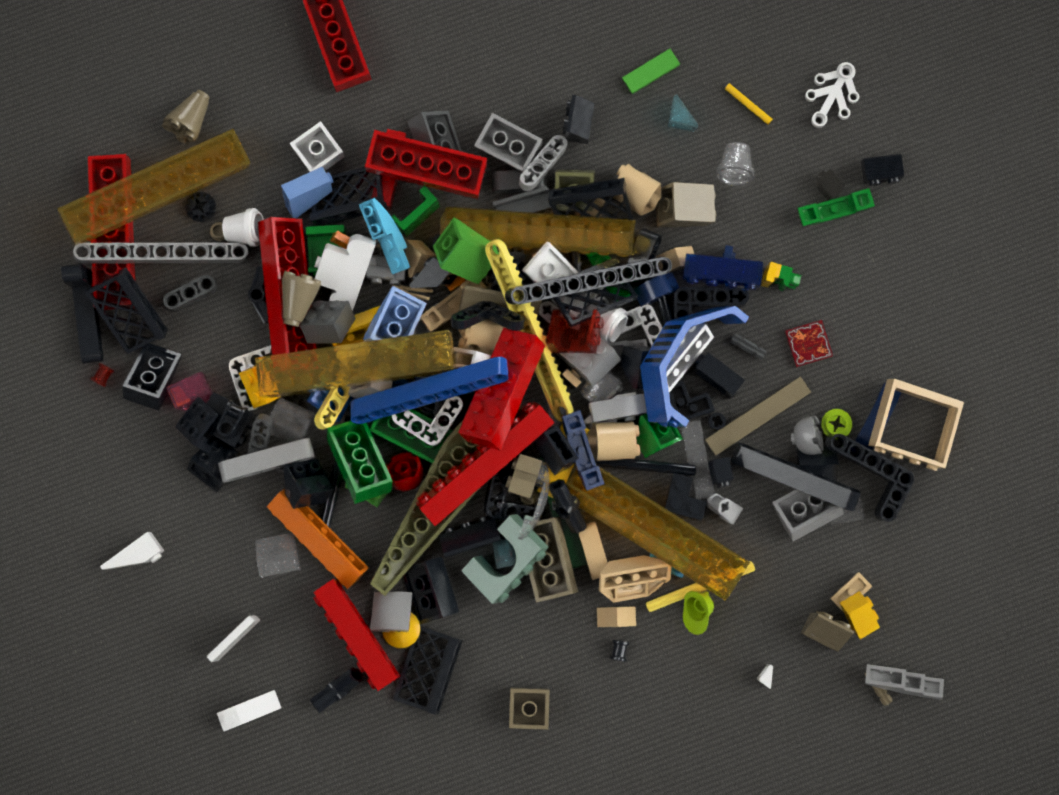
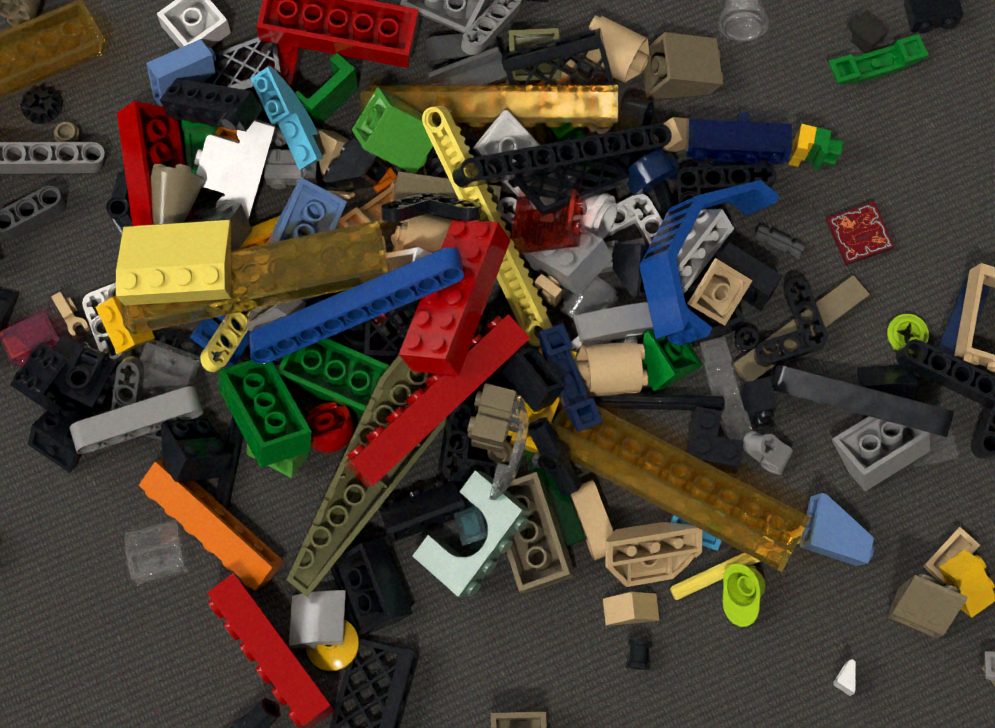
camera: 10 degrees left, 10 degrees down
(217, 371) = (67, 311): none -> tan plate
(236, 635) = (96, 668): white tile -> none
(243, 227) = (97, 123): white piece -> none
(298, 352) = (174, 263): none -> light yellow slope
(328, 224) = (211, 104): none -> black brick
(434, 426) = (365, 361): white beam -> none
(697, 391) = (719, 291): none -> tan slope
(757, 422) = (800, 336): none -> black beam
(767, 572) = (835, 533): none -> medium blue slope
(807, 436) = (871, 349): light grey cylinder -> none

